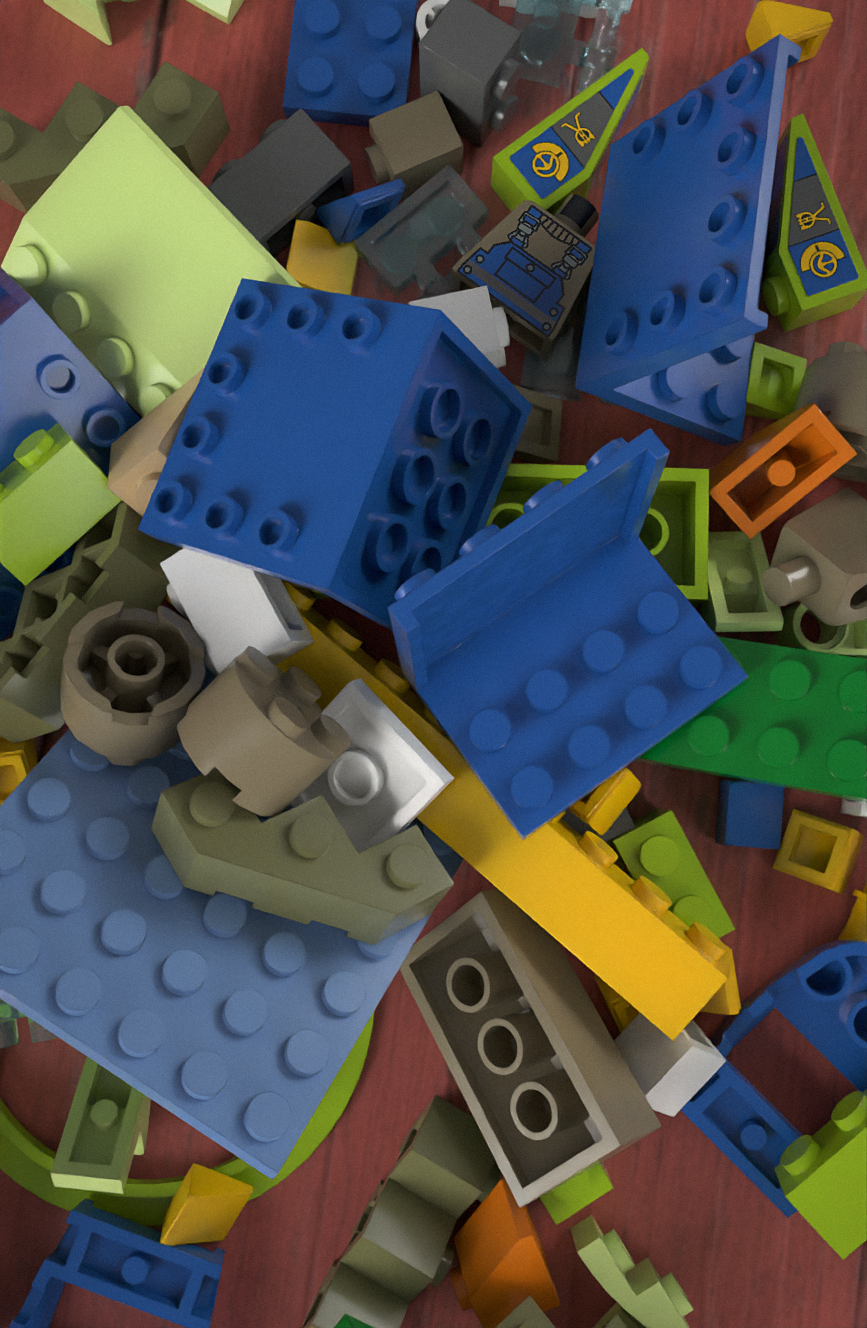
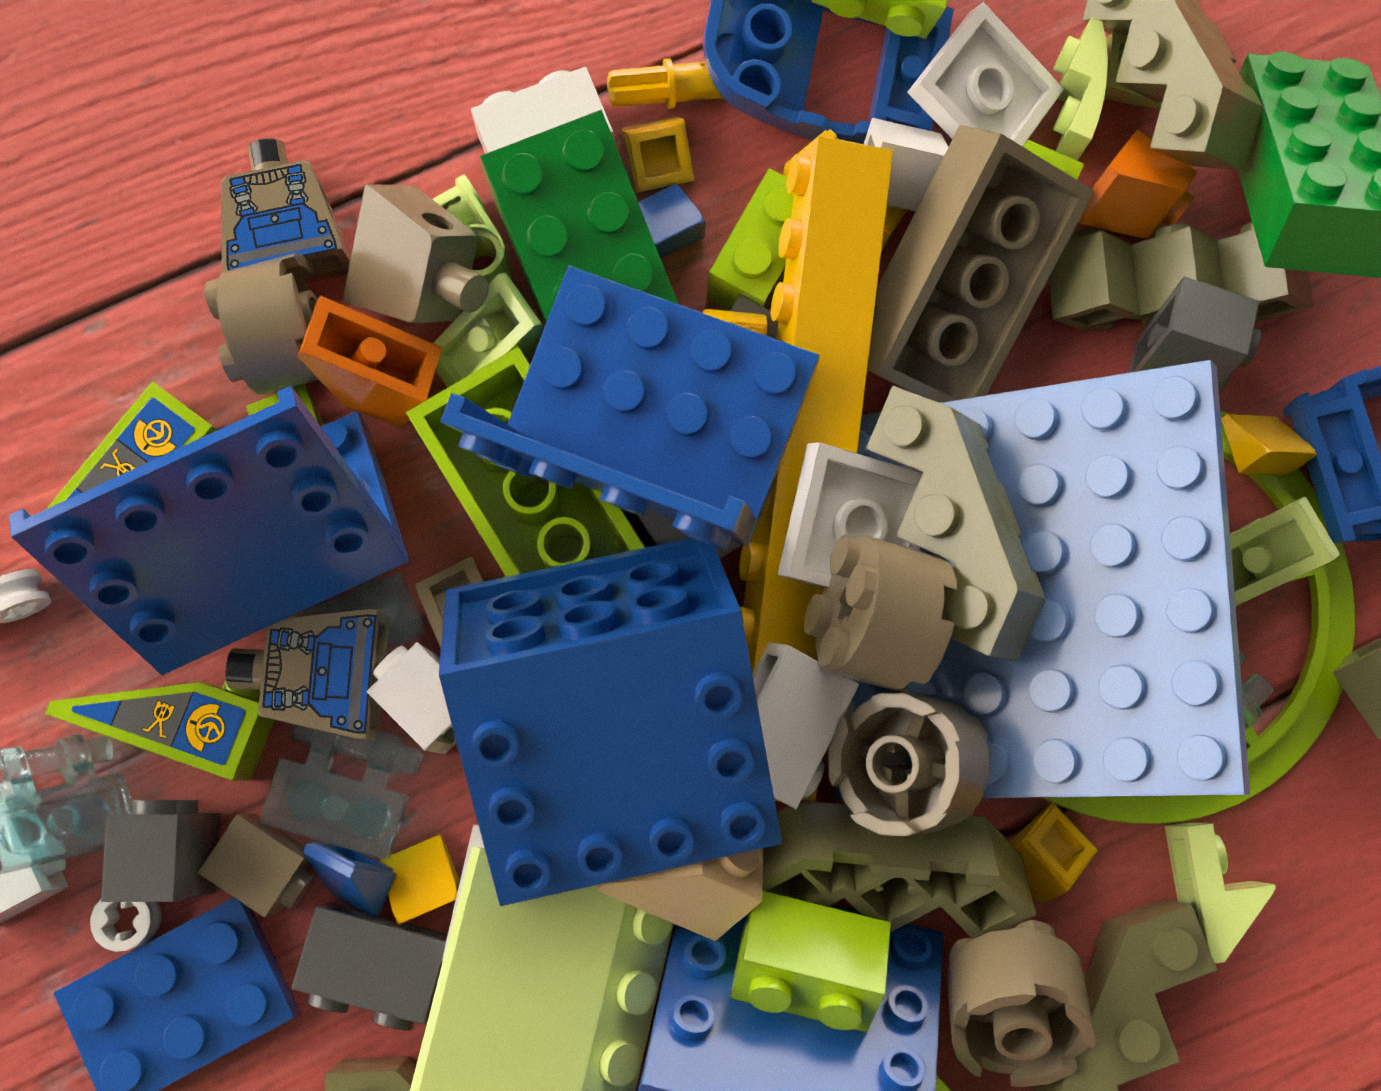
camera: 130 degrees left, 5 degrees down
(326, 1202) = (1197, 326): none -> dark grey brick
(691, 1192) = (986, 81): none -> white plate

